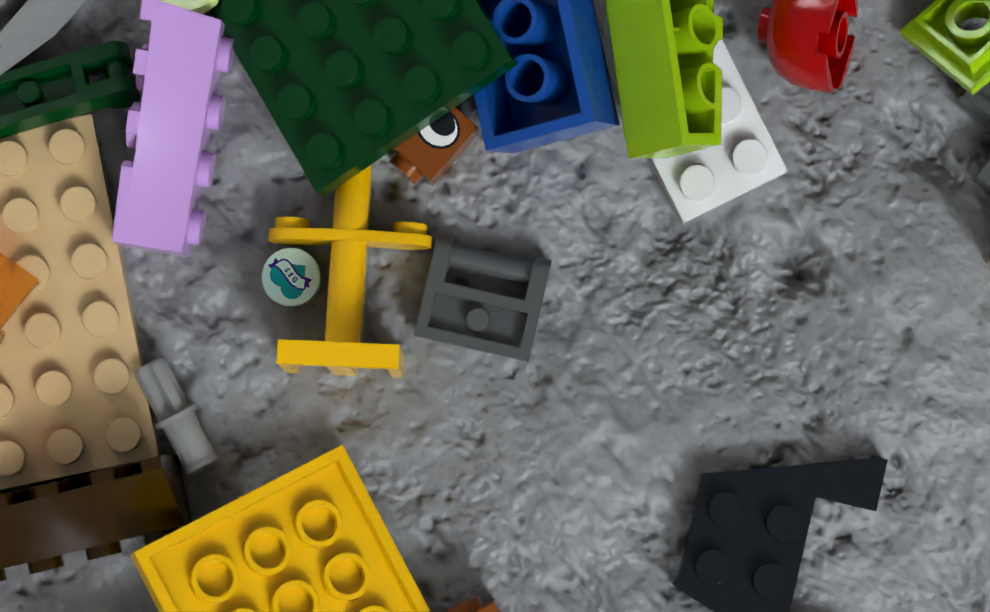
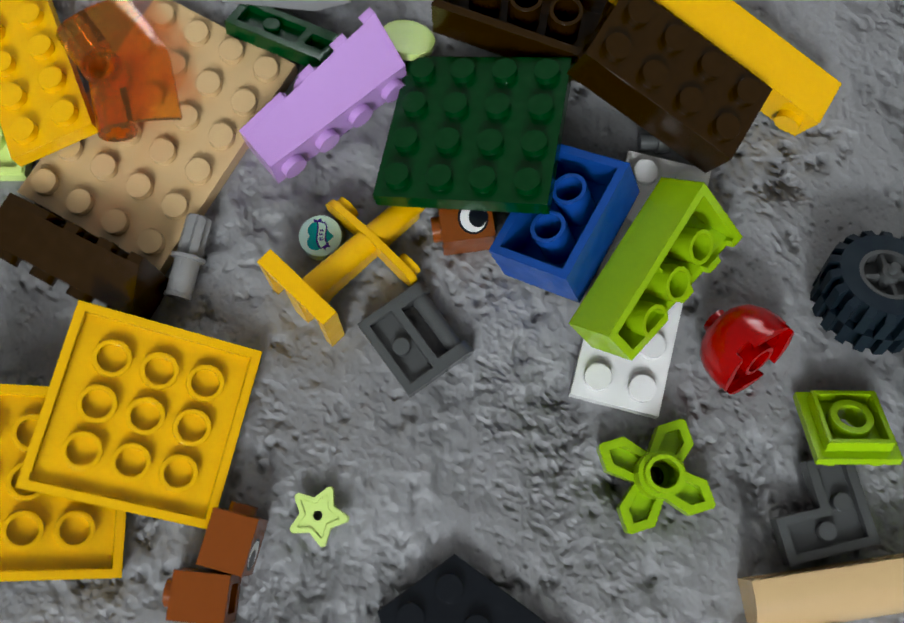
camera: 45 degrees right, 10 degrees down
(535, 535) = (331, 515): none -> yellowish green plate
(823, 201) = (643, 498): none -> lime plant

